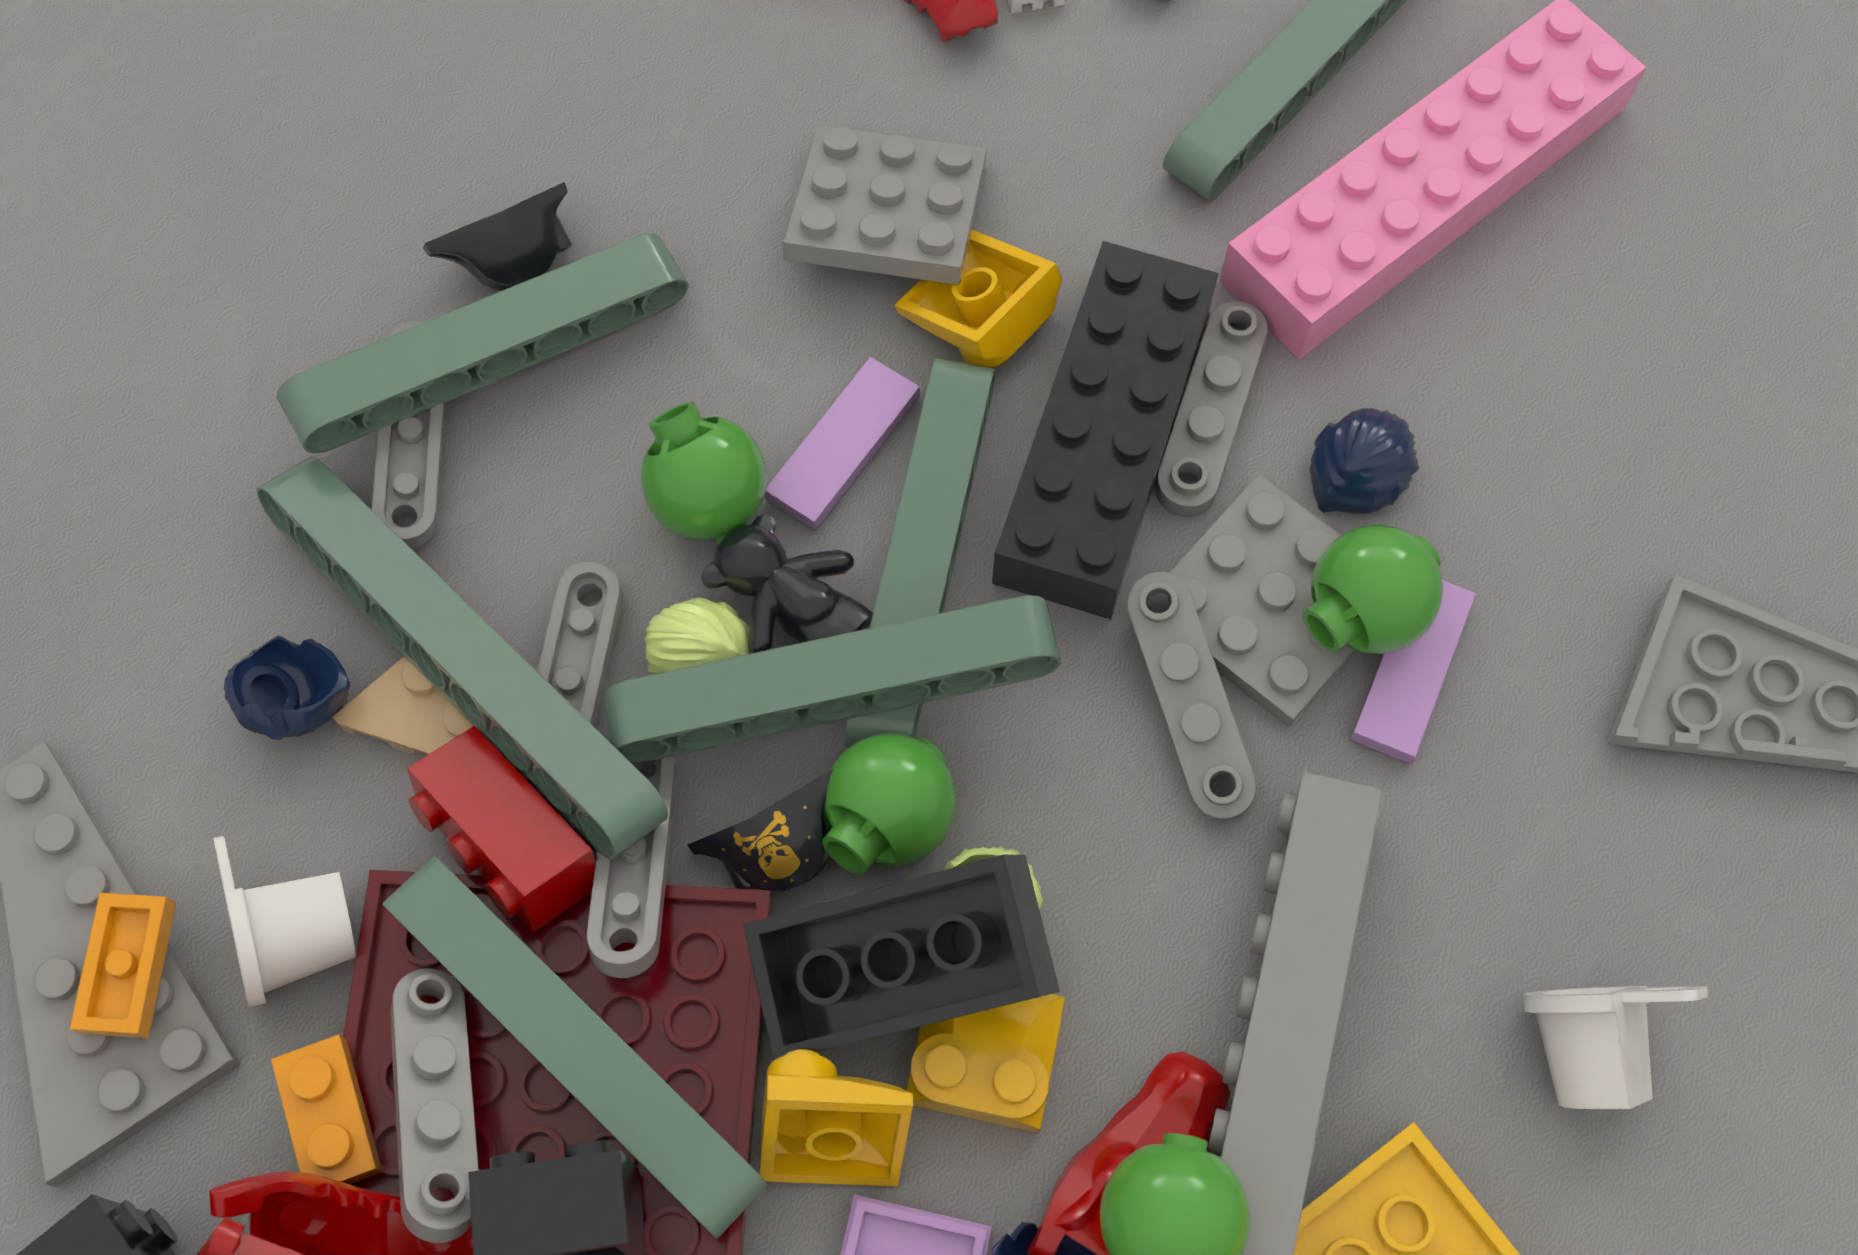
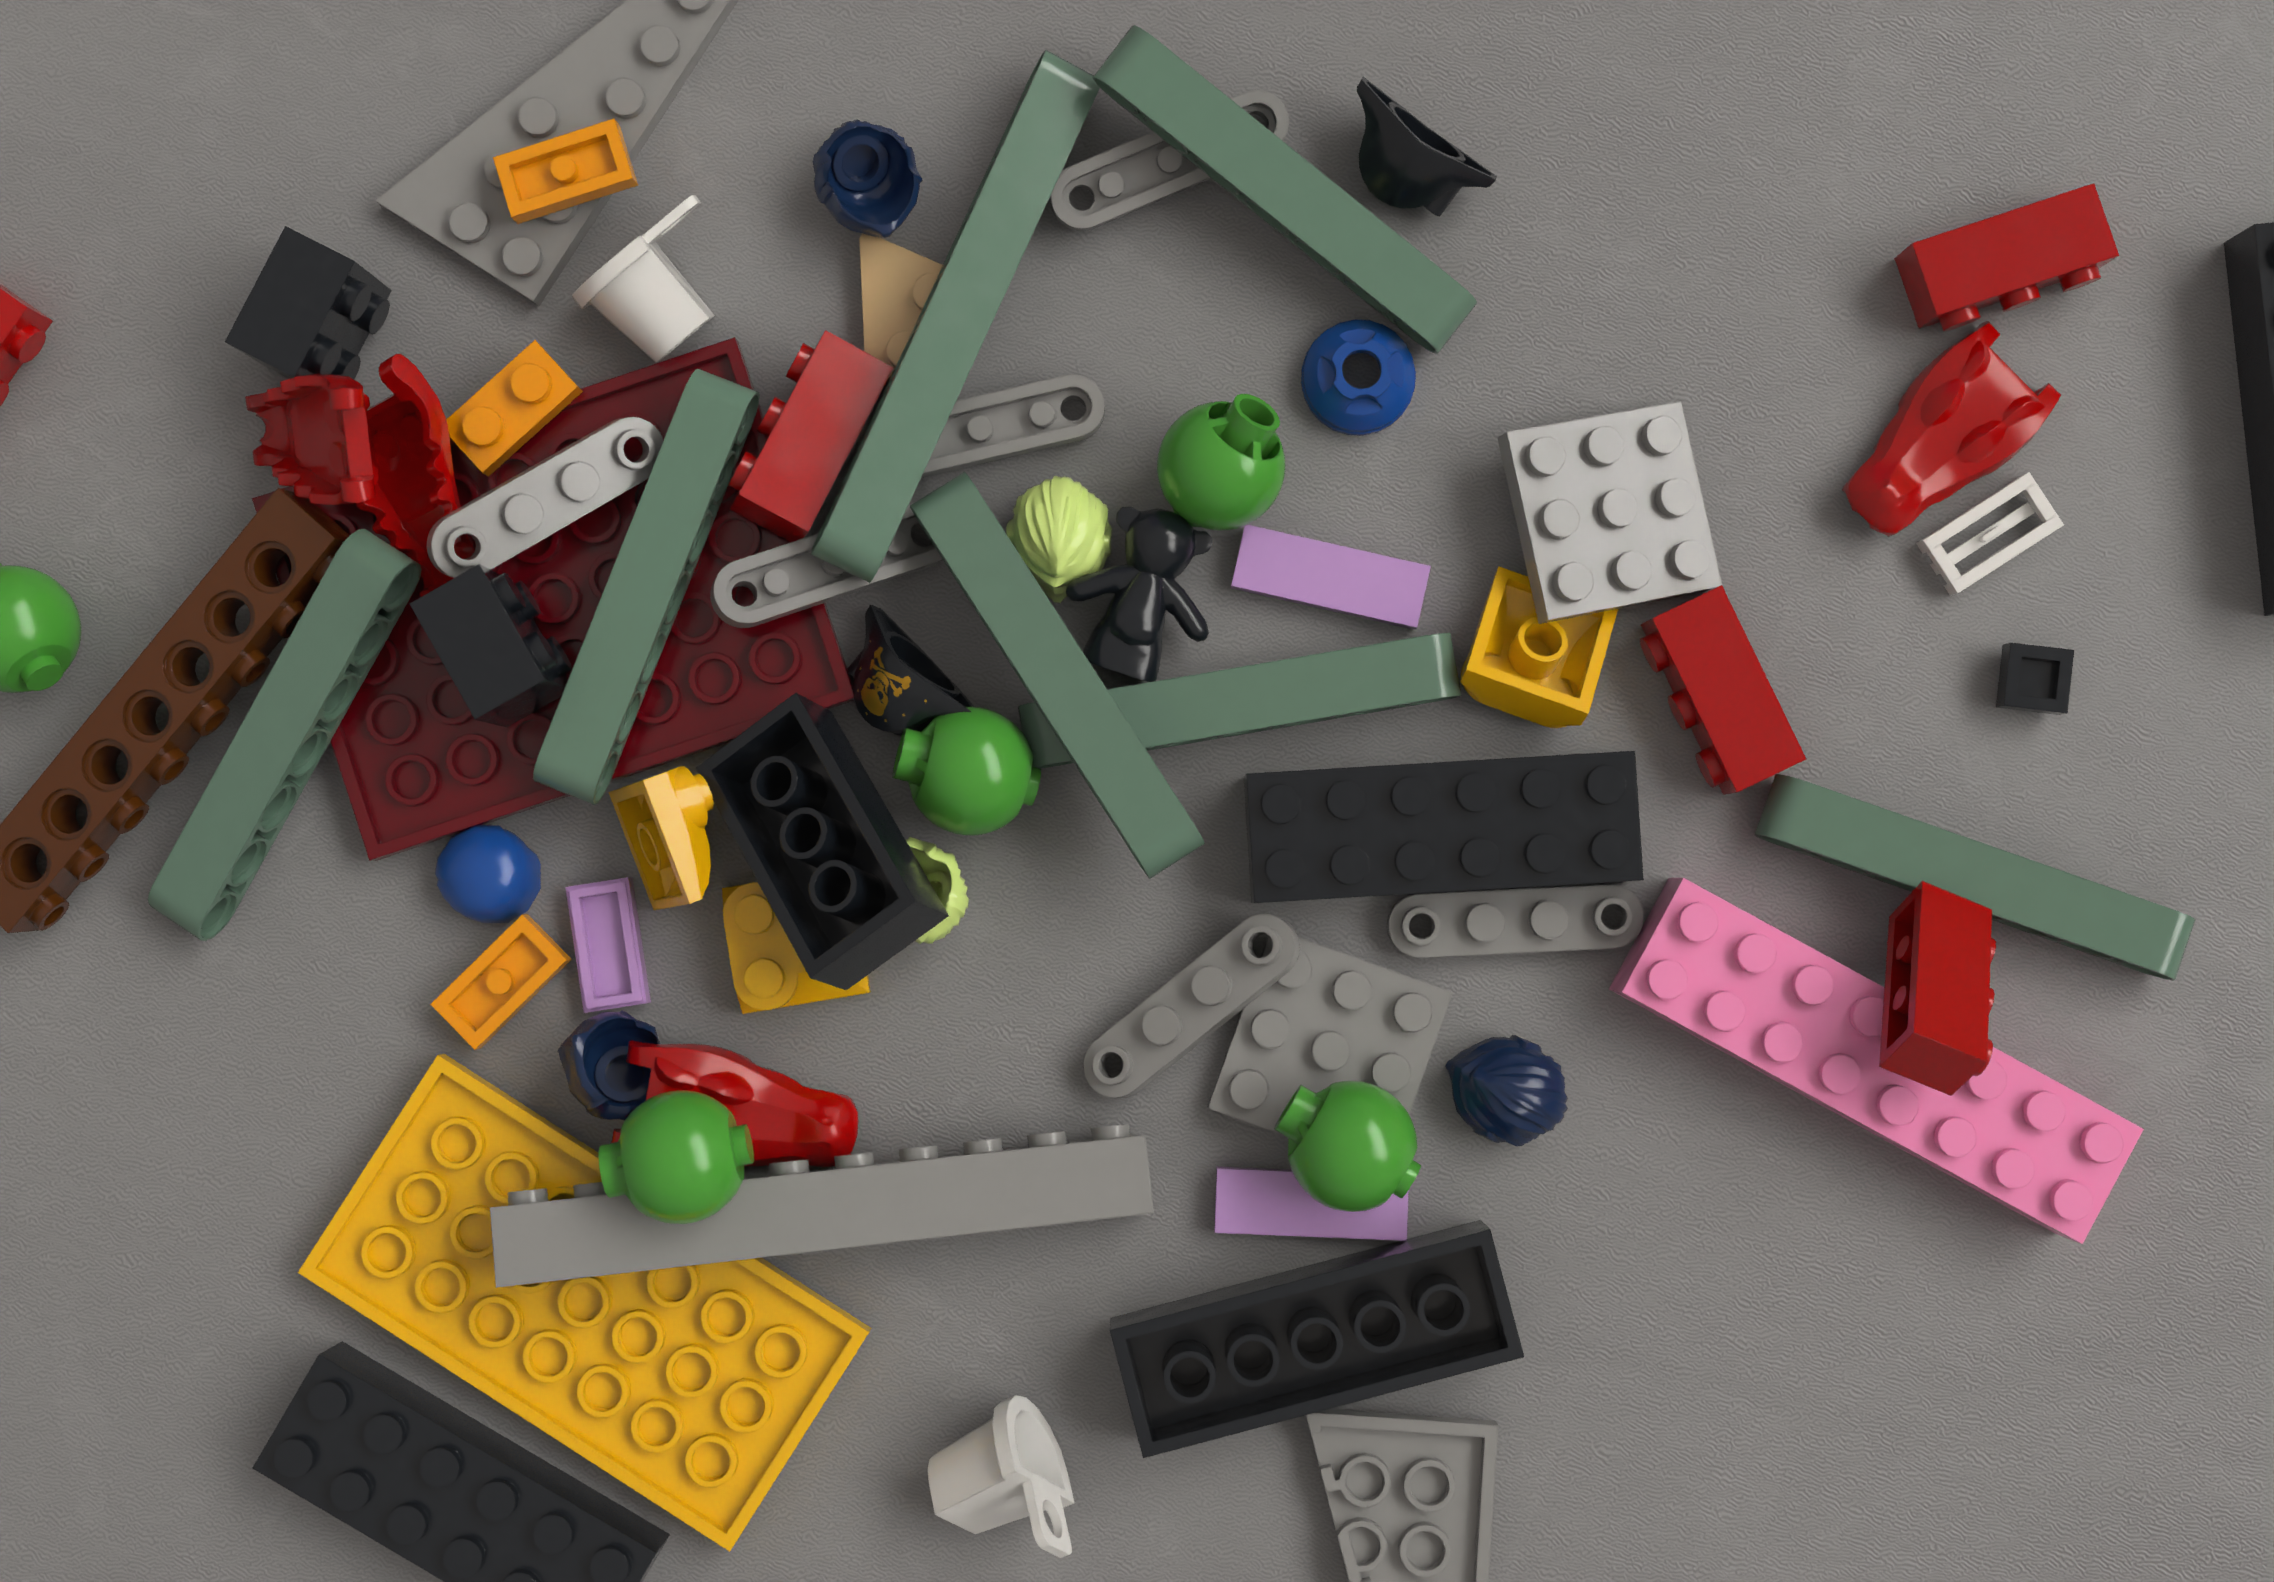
camera: 75 degrees right, 20 degrees up
(683, 378) = (1350, 408): none -> blue piece
(1076, 176) = (1720, 692): none -> red brick
(1397, 85) = (1937, 989): none -> red brick
(1548, 702) = (1315, 1338): none -> black brick

